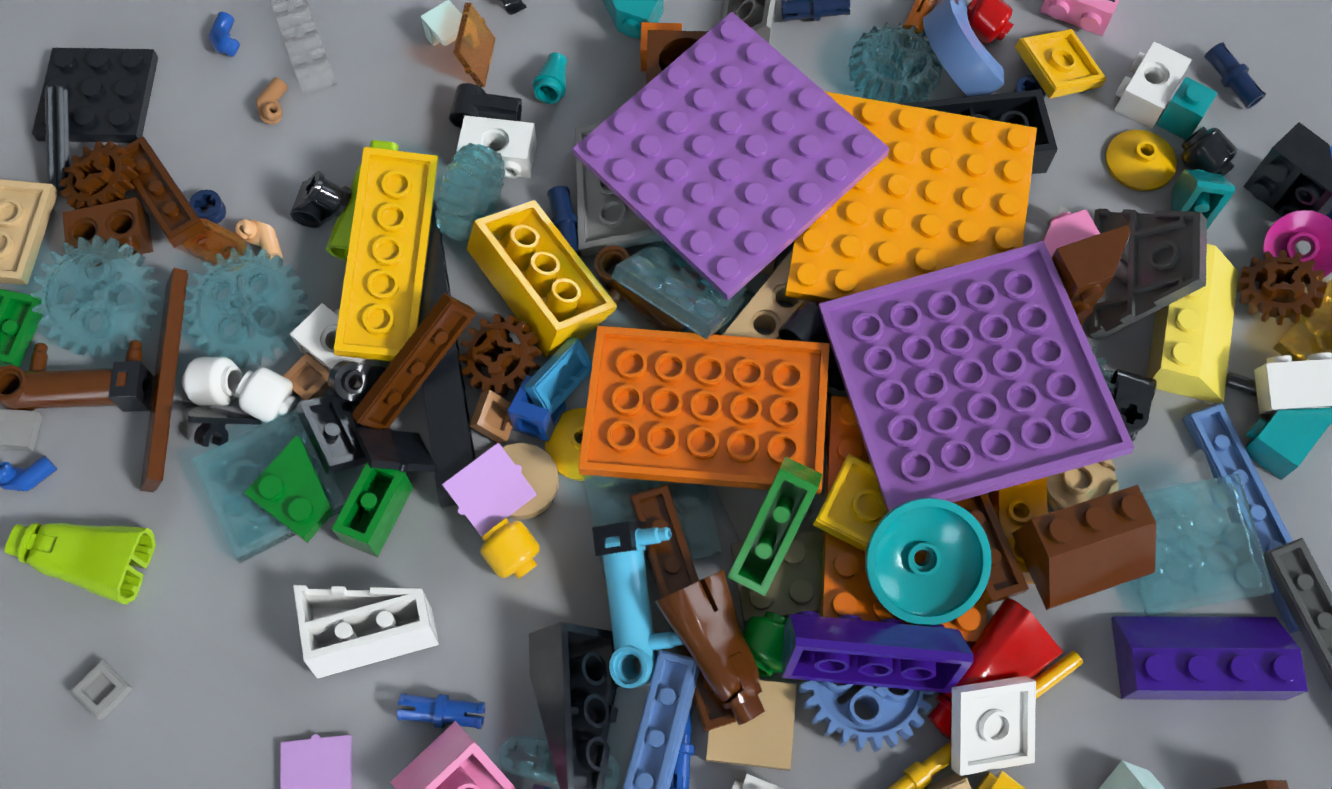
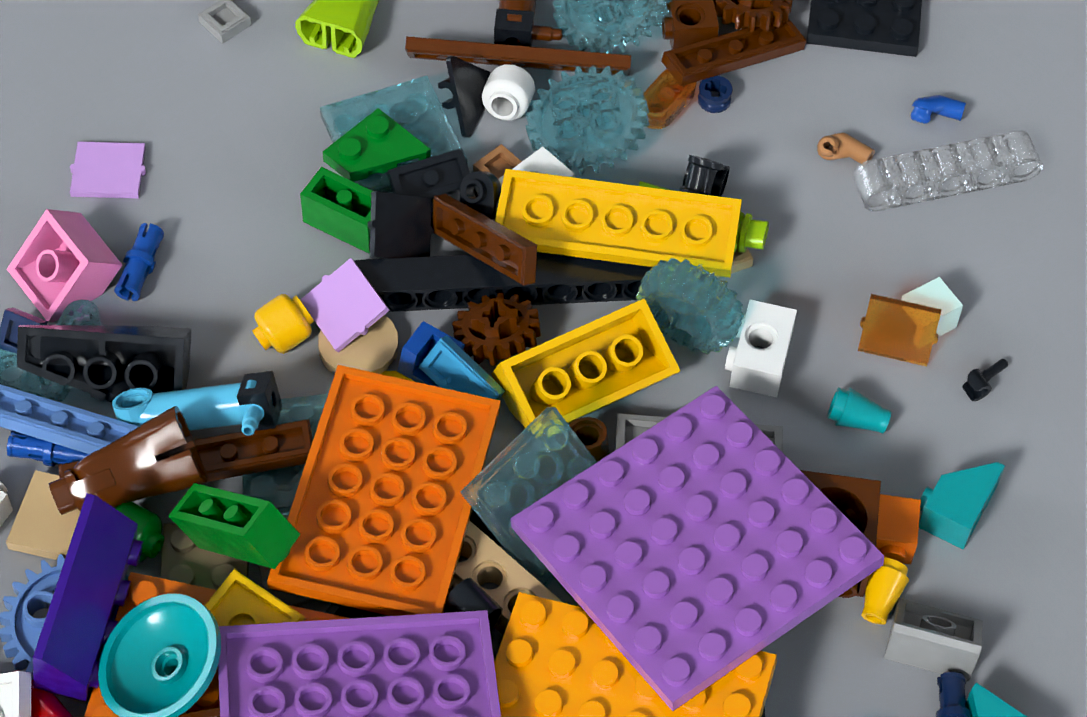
camera: 95 degrees right, 10 degrees down
(260, 235) = (675, 139): light nougat arm -> none
(265, 394) = (485, 132): white head -> none
(361, 627) = (229, 194): white wedge -> none
(474, 101) = (818, 336): black piece -> none
(492, 417) = (431, 312): medium nougat plate -> none
(563, 215) = (655, 404): dark blue pin -> none

